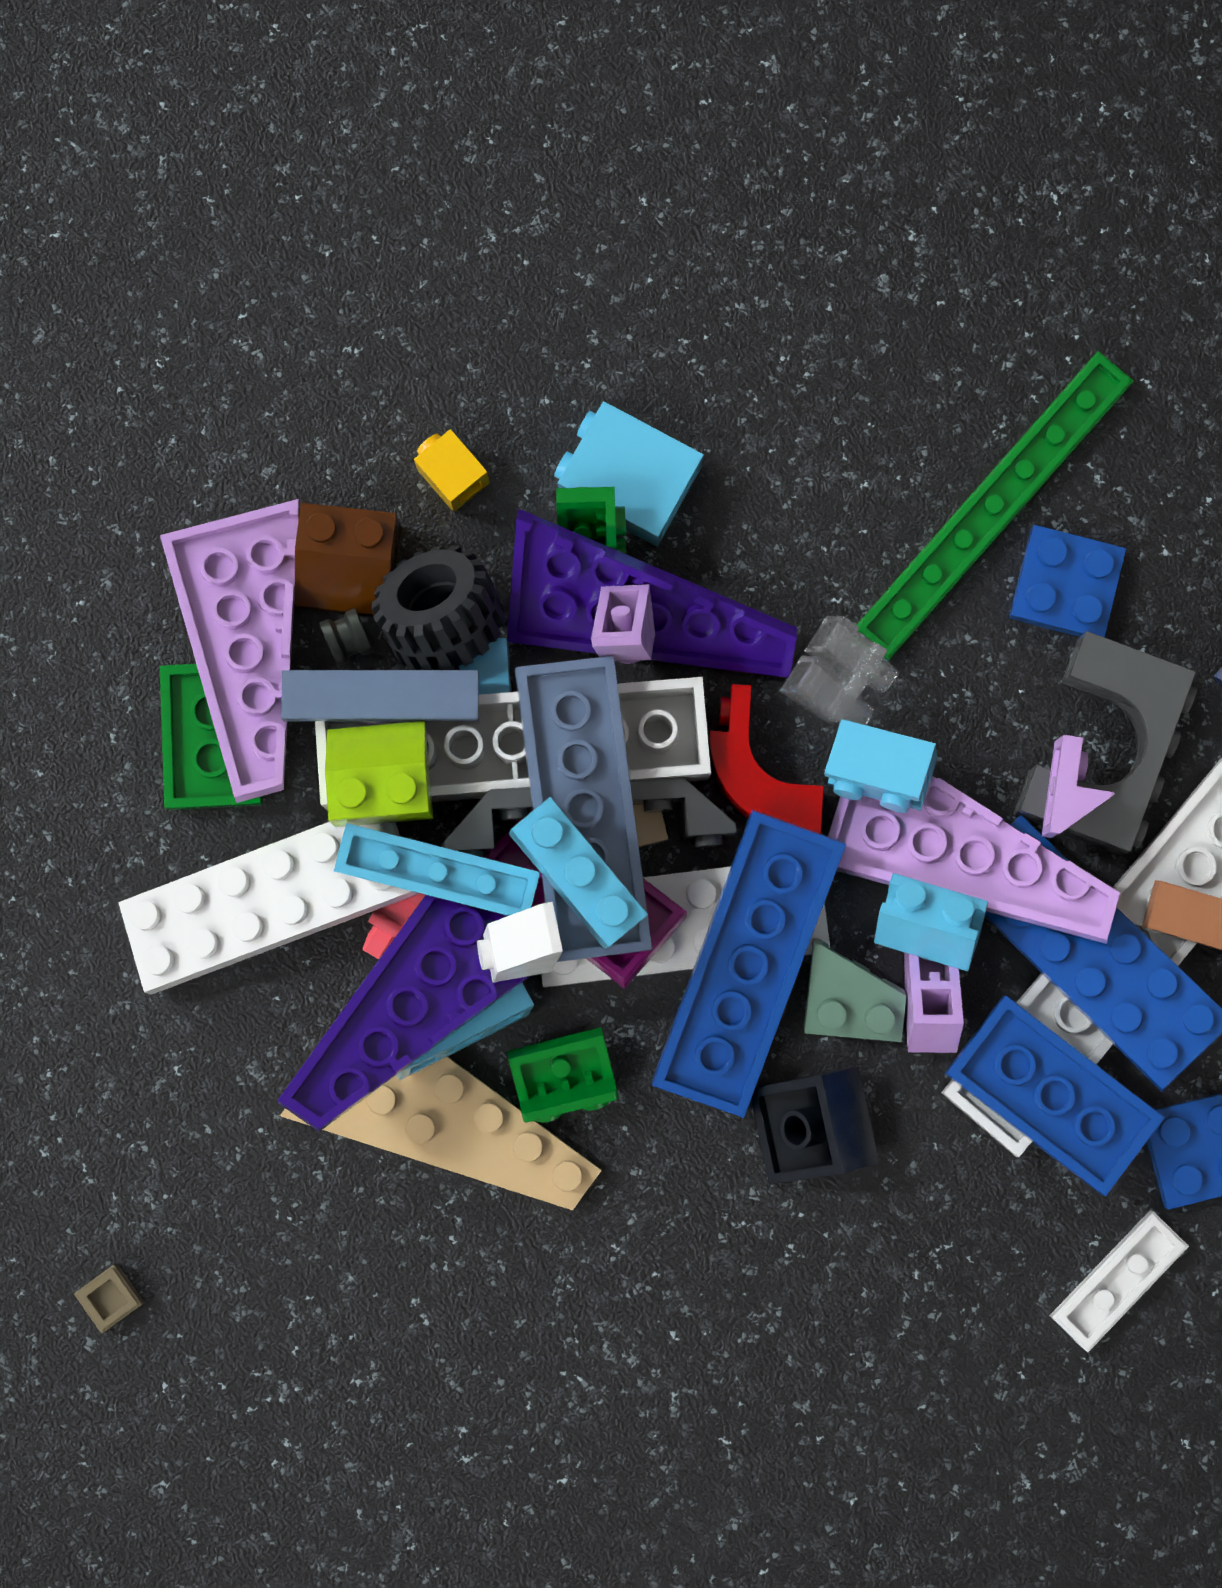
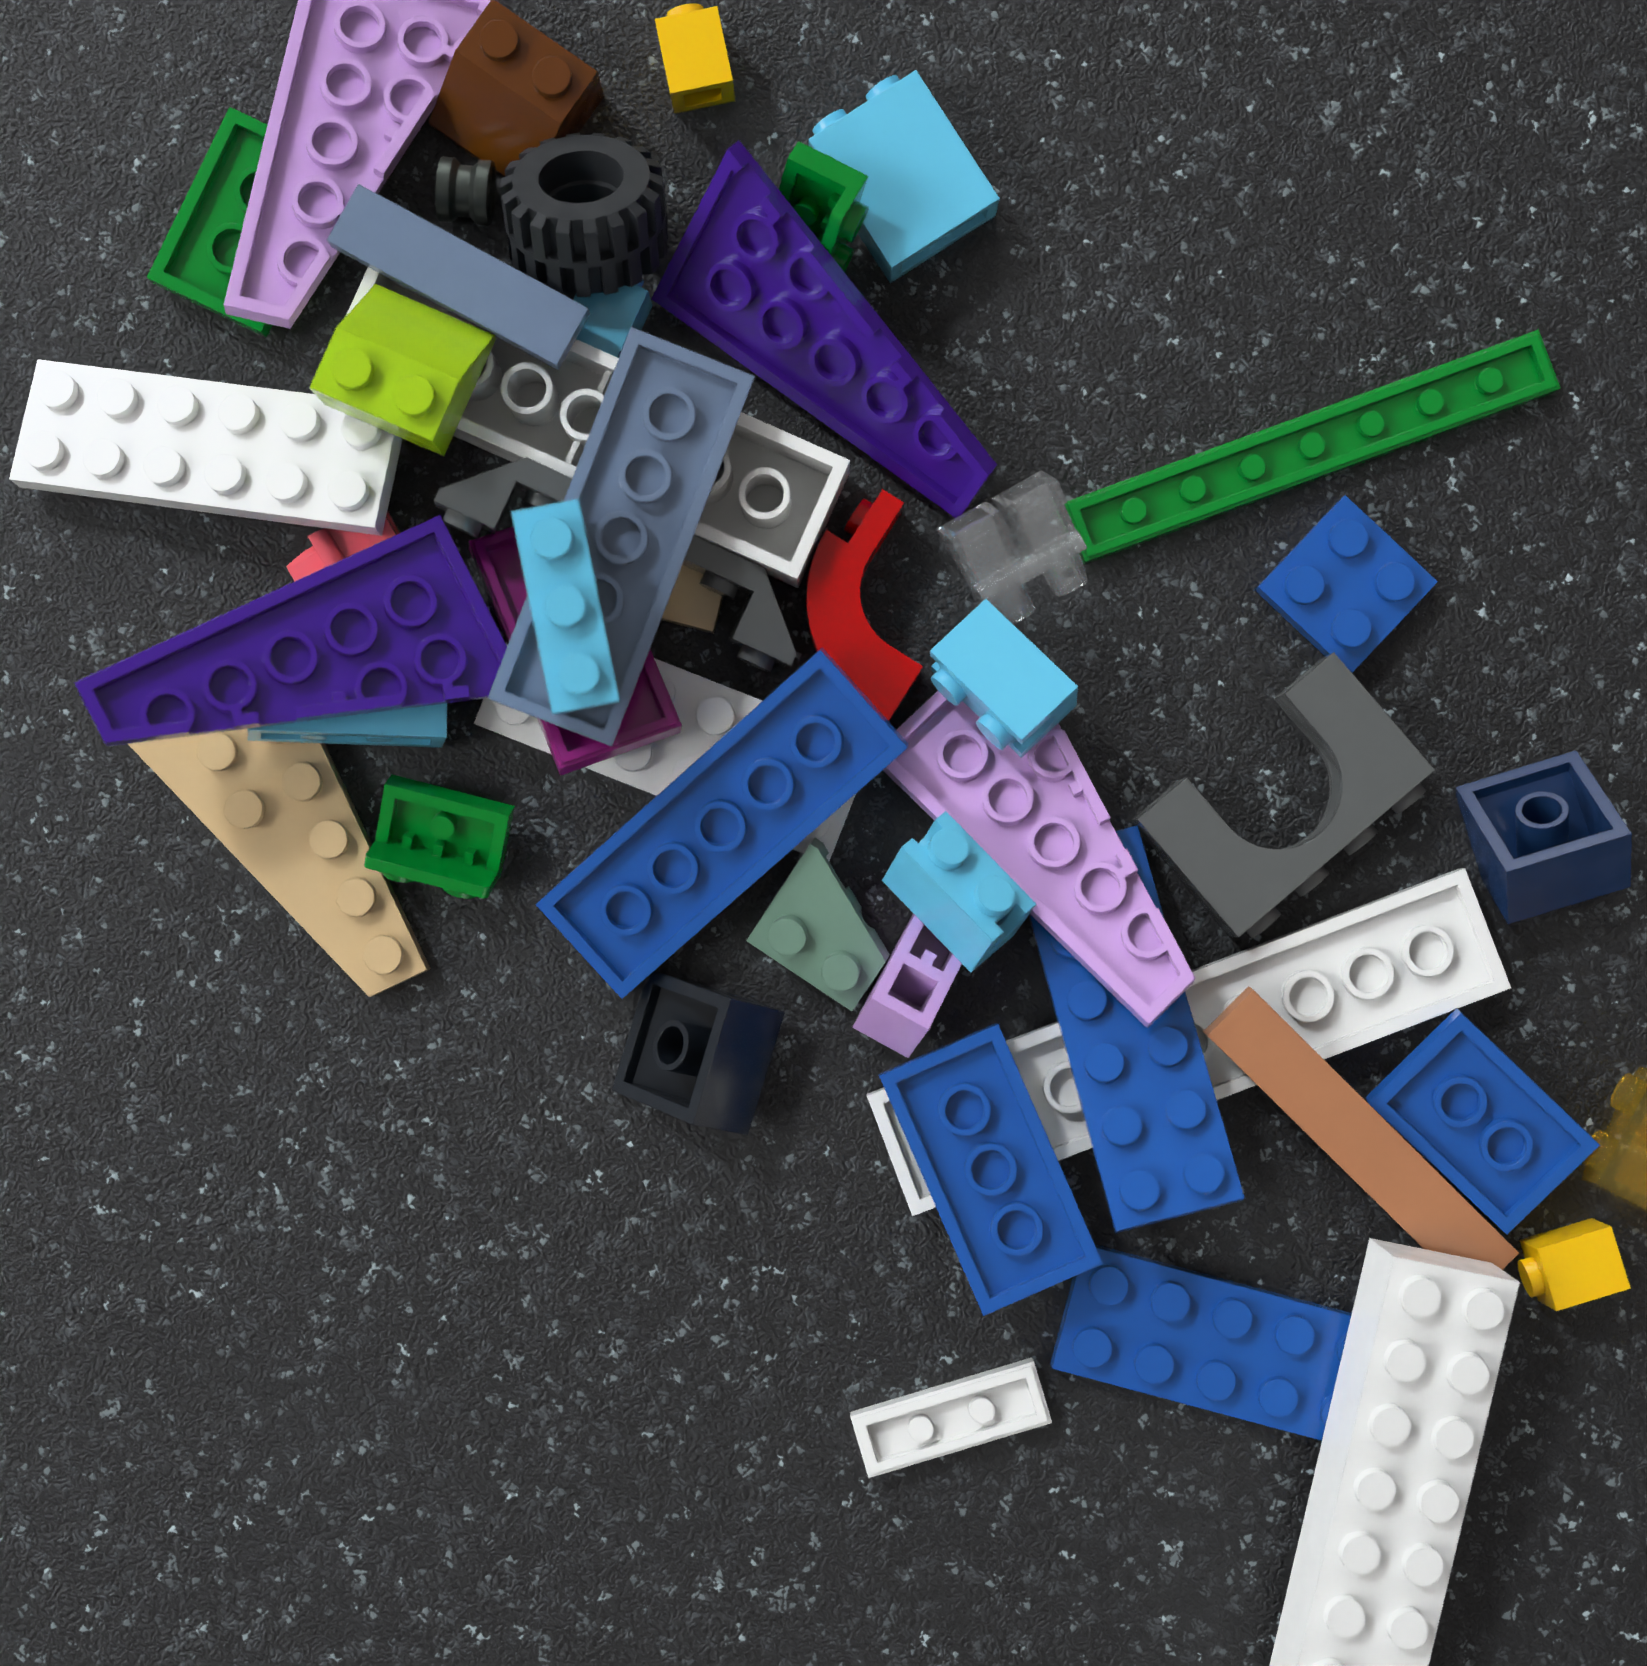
camera: 30 degrees right, 5 degrees up
(435, 871) = (408, 518): medium azure plate -> none
(521, 944) = (456, 655): white slope -> none
(624, 623) = (790, 347): lavender slope -> none
(1065, 800) = (1194, 837): lavender slope -> none

